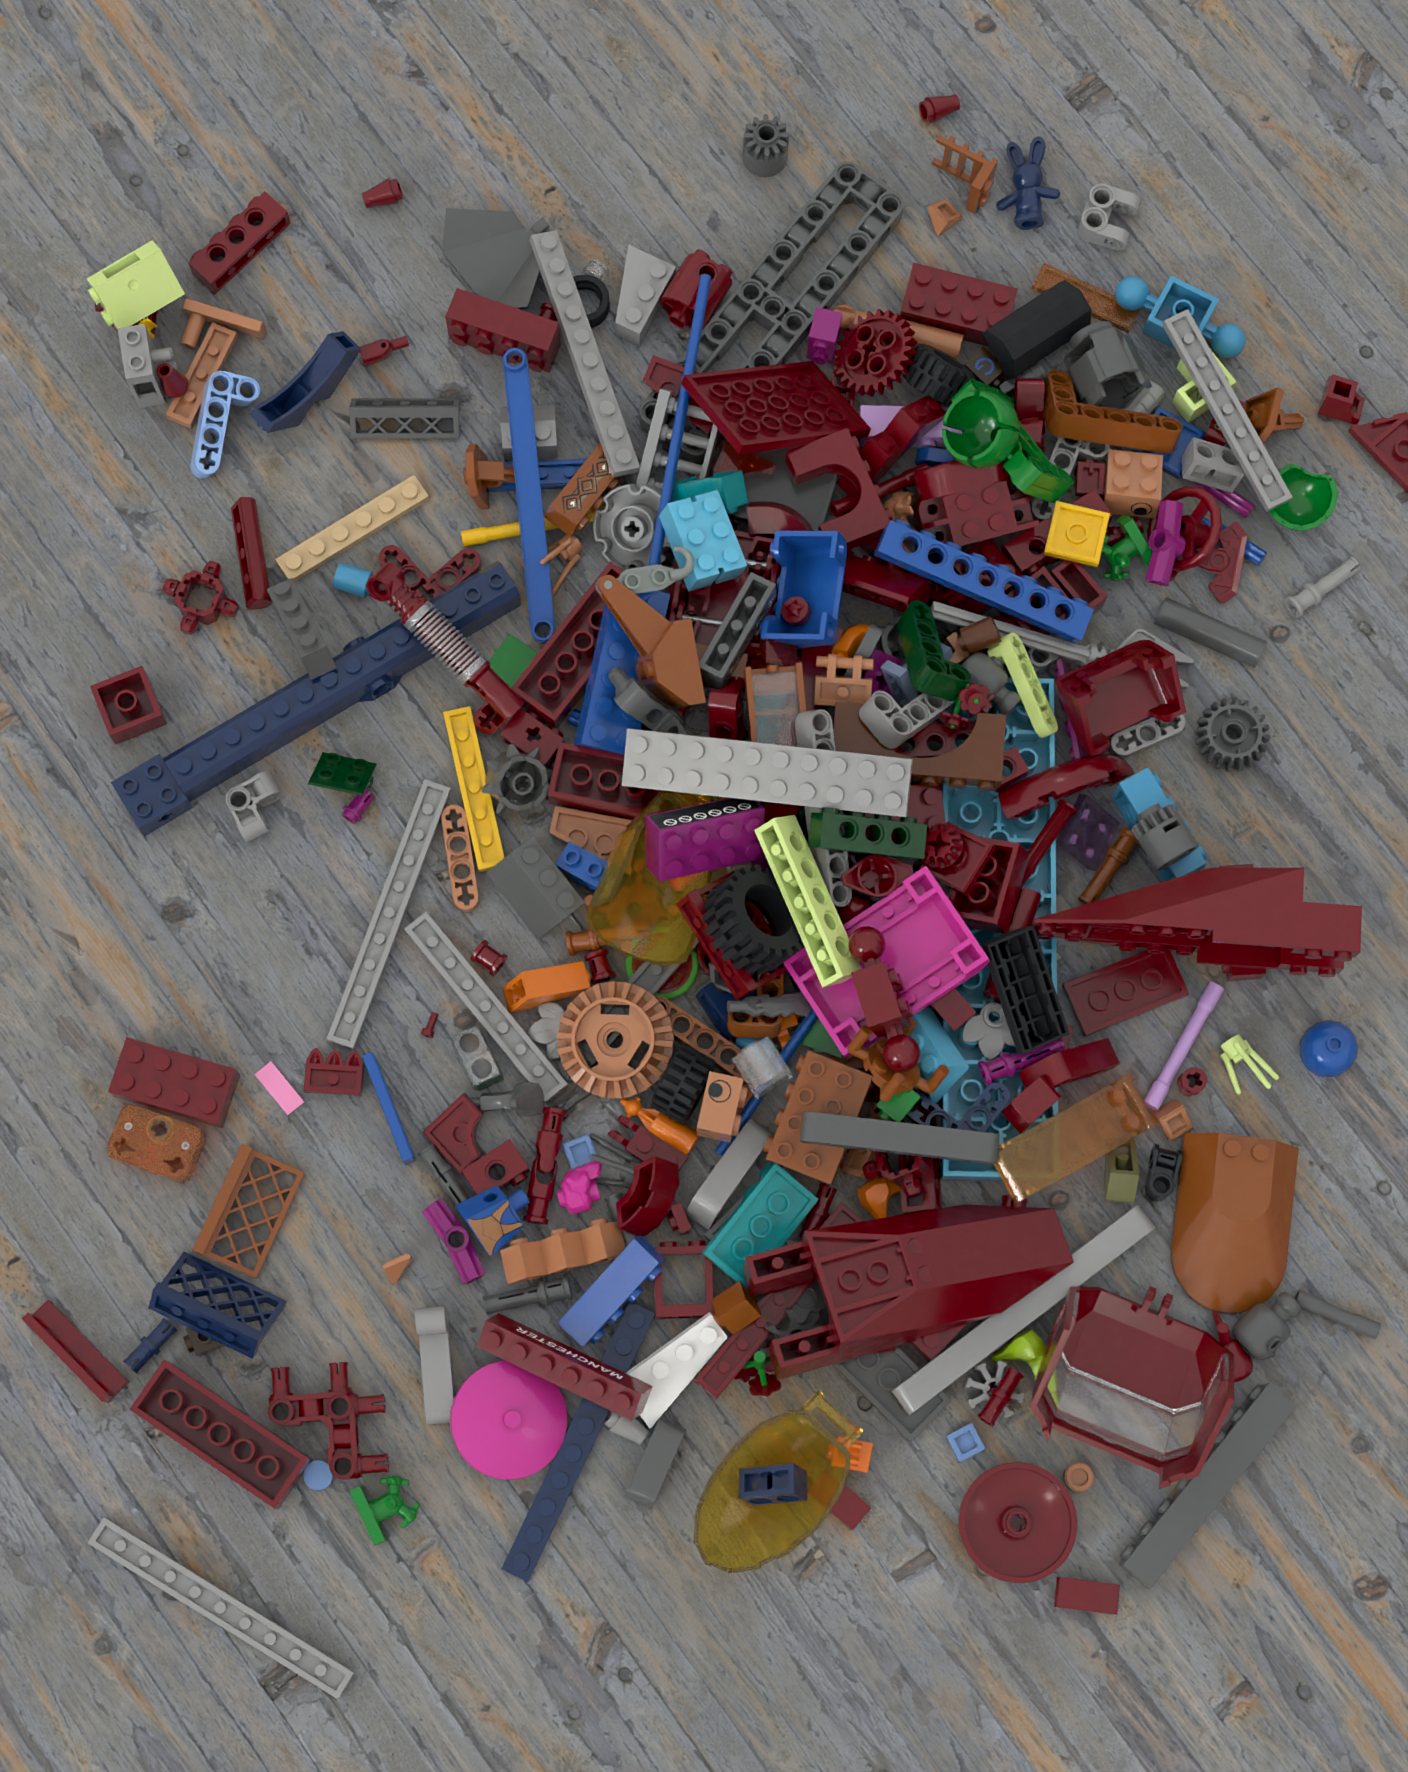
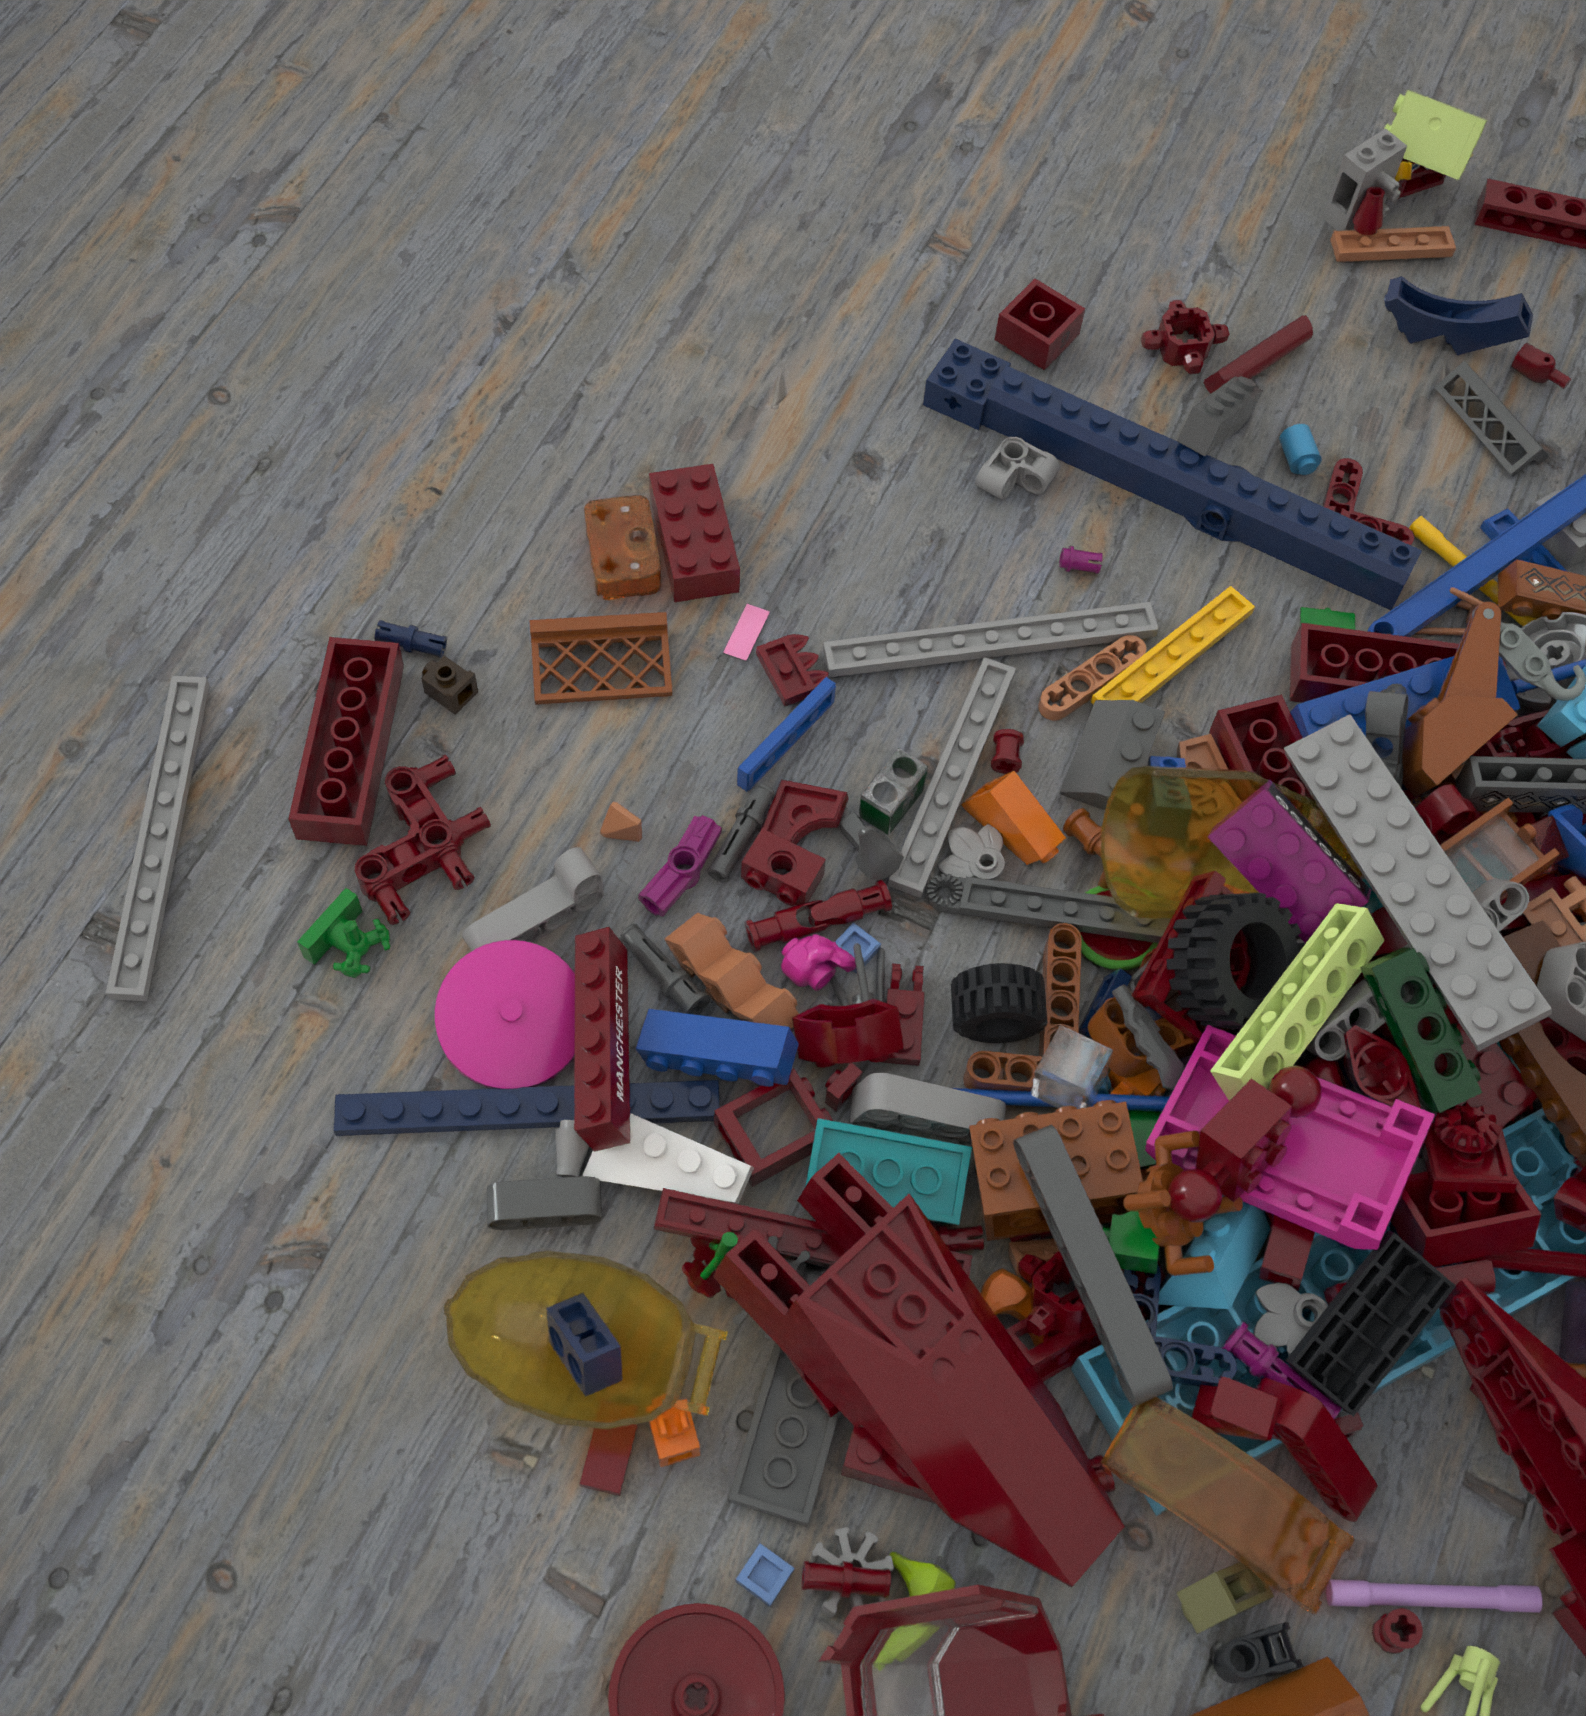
camera: 60 degrees right, 15 degrees down
(76, 1351) = (368, 577): dark red fence -> none
(201, 313) = (1452, 215): nougat piece -> none
(207, 1318) = (463, 663): dark blue fence -> none
(214, 425) = (1357, 270): light blue beam -> none
(318, 1475) = (347, 856): medium blue tile -> none
(343, 774) = (1104, 528): dark green hinge -> none
(352, 529) = (1350, 430): tan plate -> none
(428, 1031) = (891, 735): dark red piece -> none
(471, 668) = (1313, 491): dark red piece -> none
(484, 474) = (1492, 500): dark orange piece -> none
(493, 1217) = (729, 884): blue torso -> none
(502, 777) = (1225, 663): dark grey brick -> none
(526, 724) = (1265, 672): dark red brick -> none
(599, 966) = (1071, 863): dark red bush -> none
(646, 1022) = (1042, 928): nougat gear -> none
(663, 1127) = (936, 1018): orange wheel -> none
(720, 1107) = (997, 1047): nougat brick -> none
(735, 1308) = (773, 1191): dark orange brick -> none
(1002, 1327) = (969, 1556): light grey beam -> none
(1124, 990) = (1451, 1479): dark red plate -> none
(1173, 1119) = (1332, 1634): nougat slope -> none

